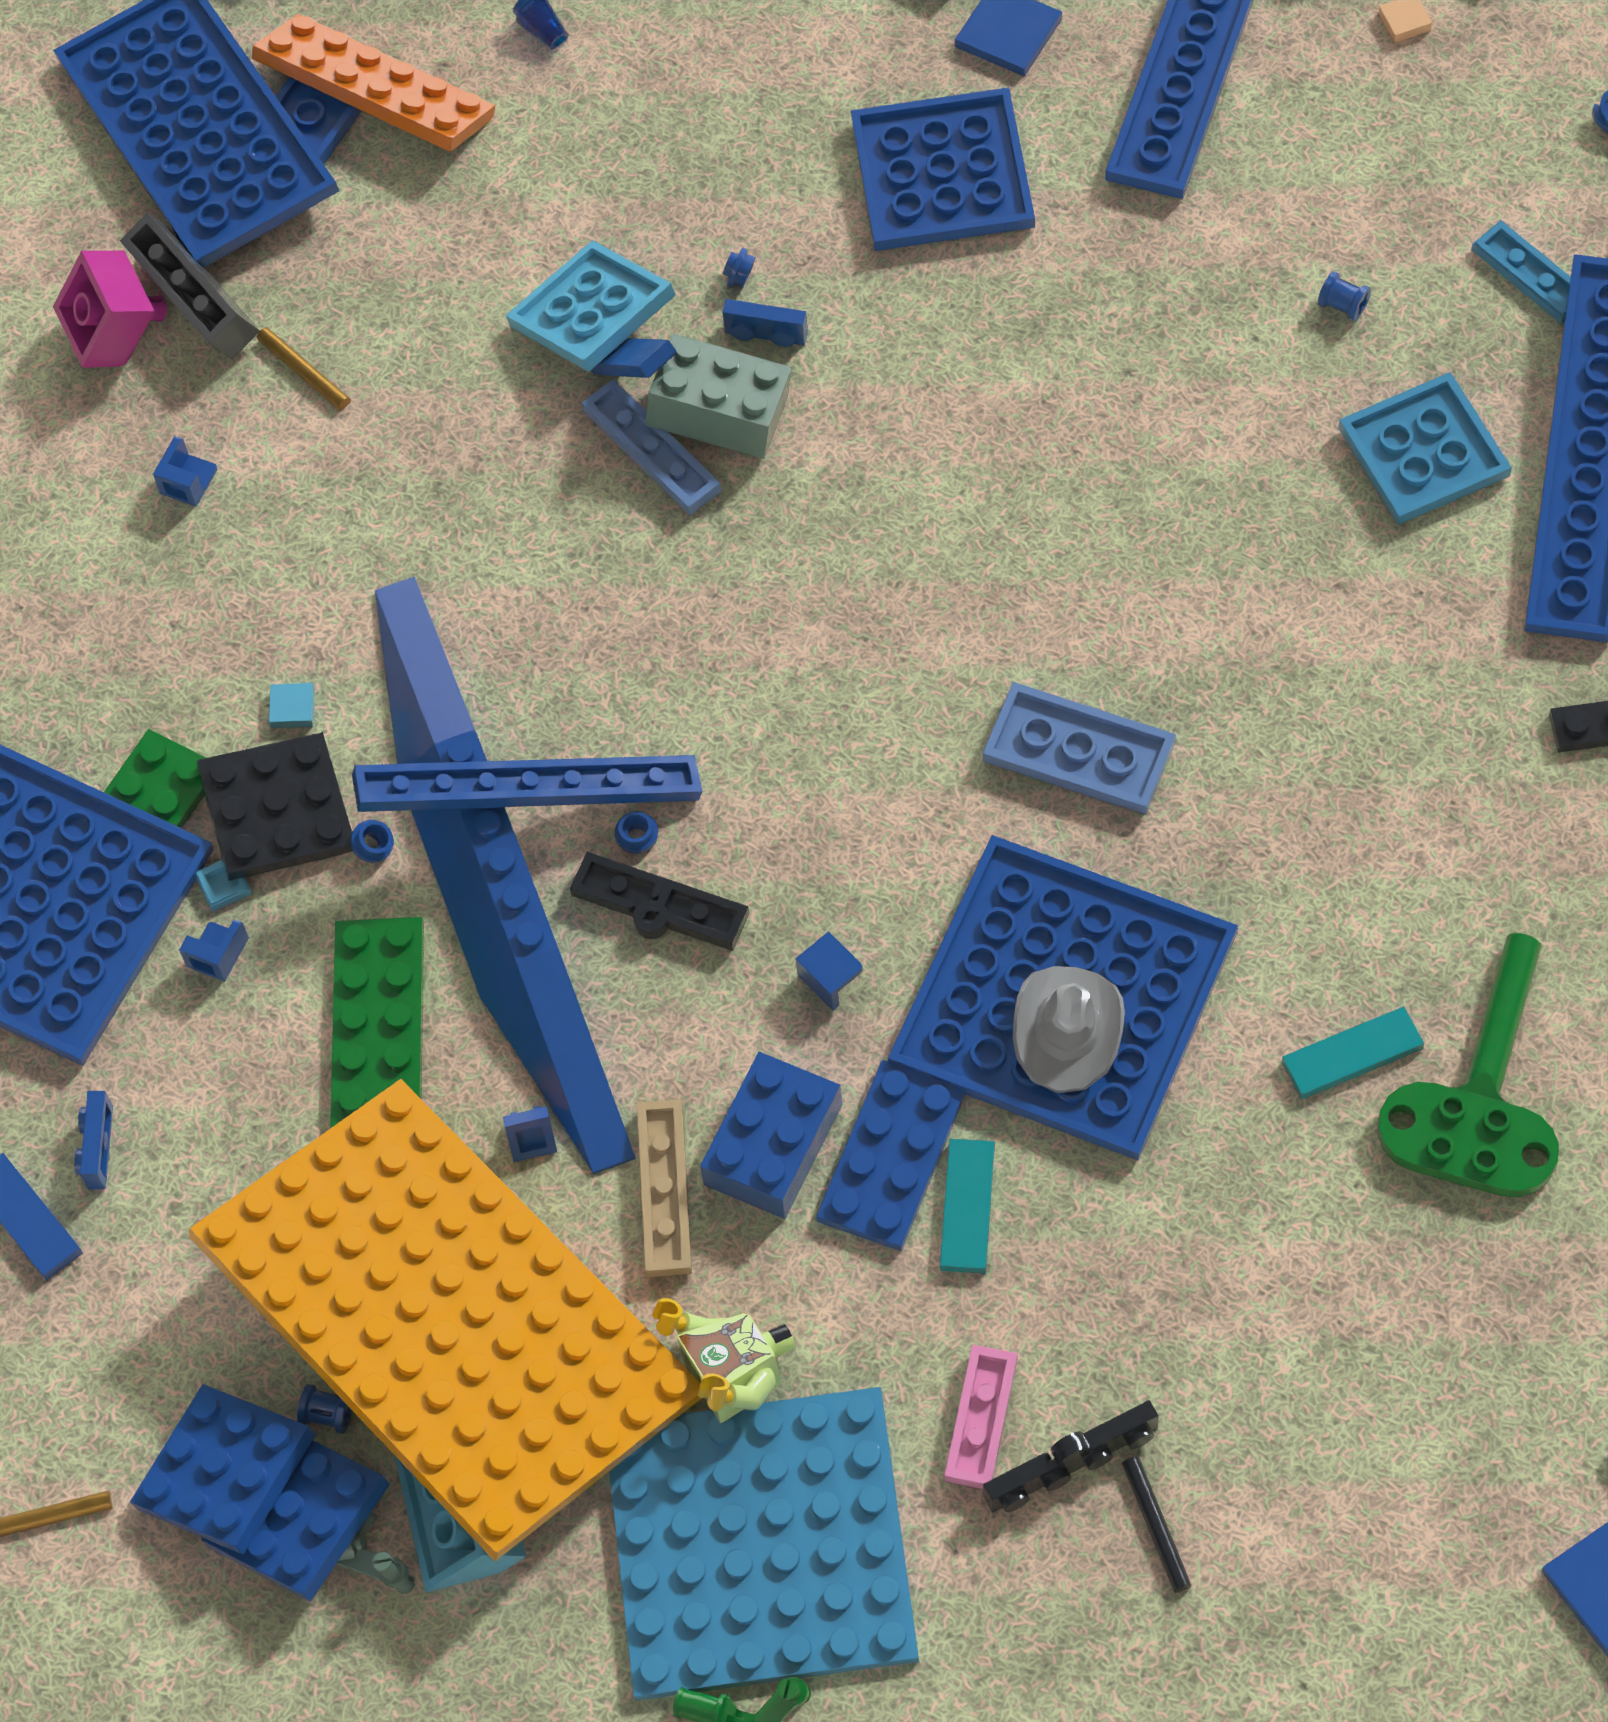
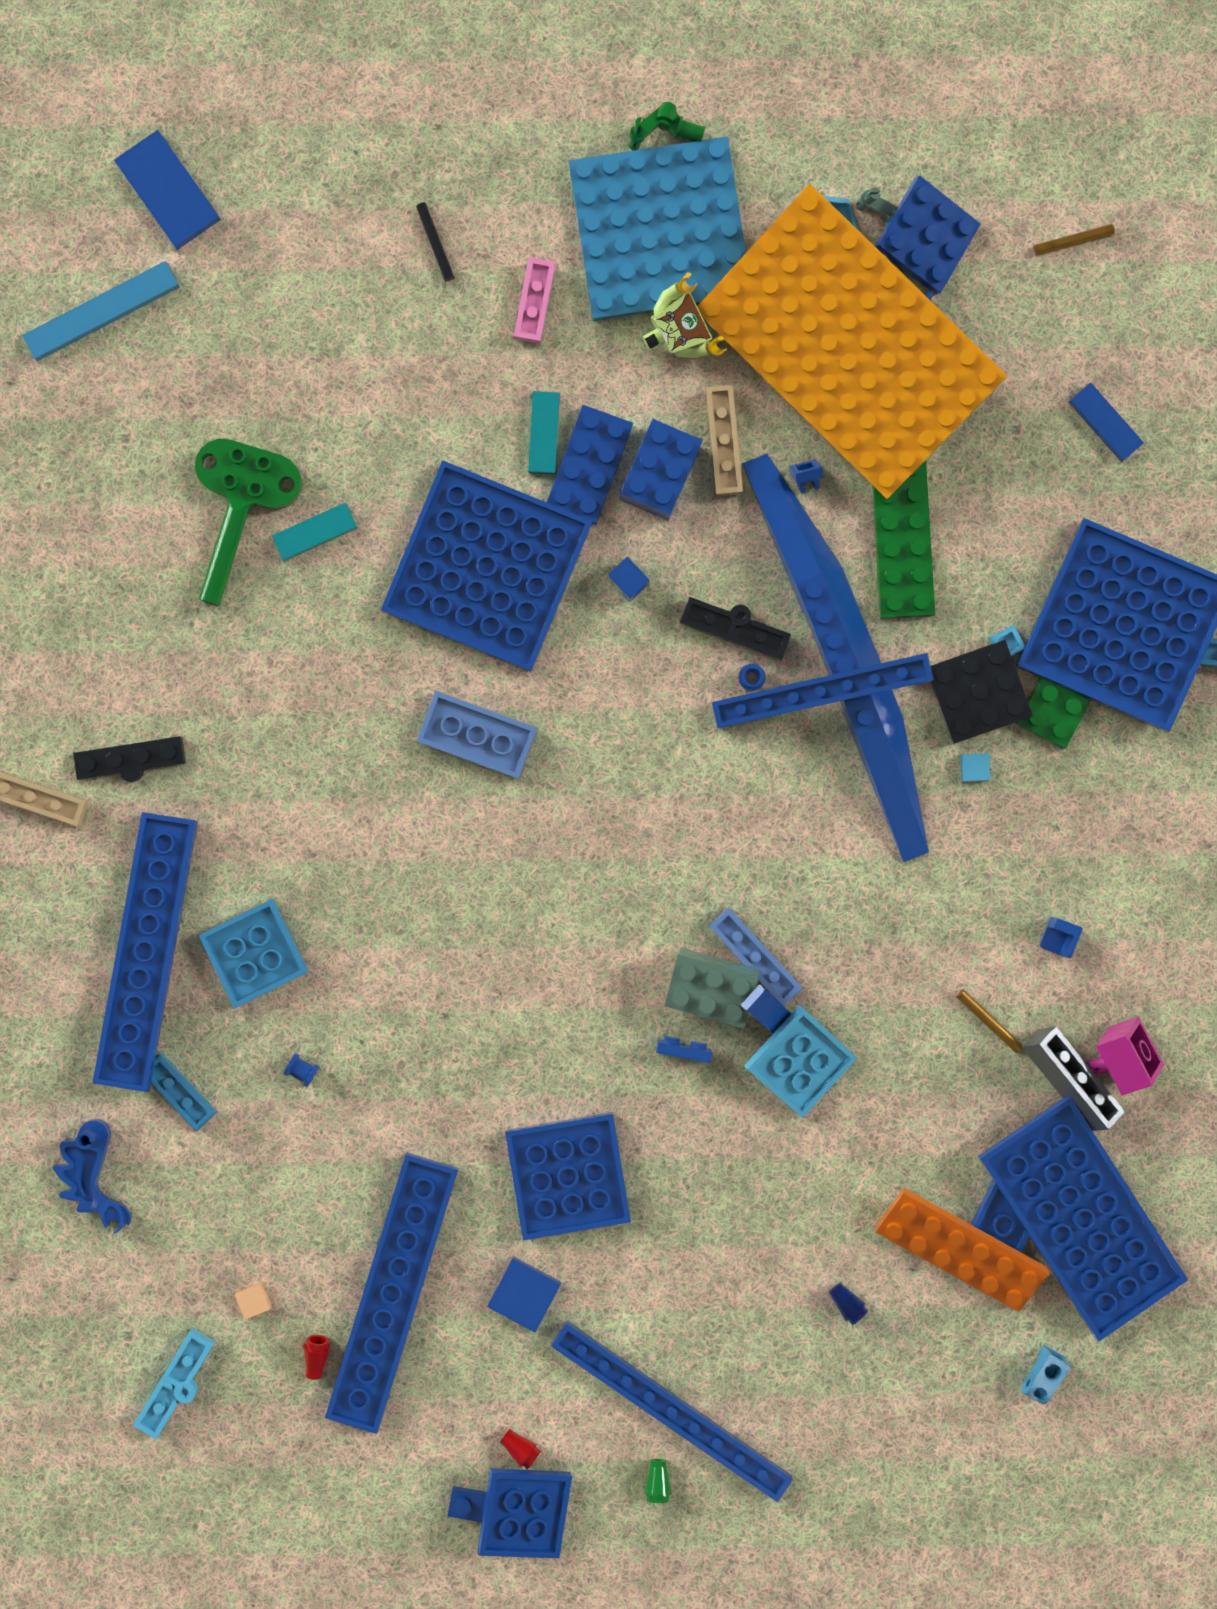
camera: 170 degrees right, 25 degrees up
(95, 1125) = (1068, 456): blue plate -> none
(215, 950) = (1008, 595): blue panel -> none
(222, 1468) = (972, 260): blue plate -> none
(738, 267) = (702, 1095): blue plate -> none
(1067, 1027) = (482, 537): light grey hat -> none
(1071, 1454) = (482, 274): black hinge -> none

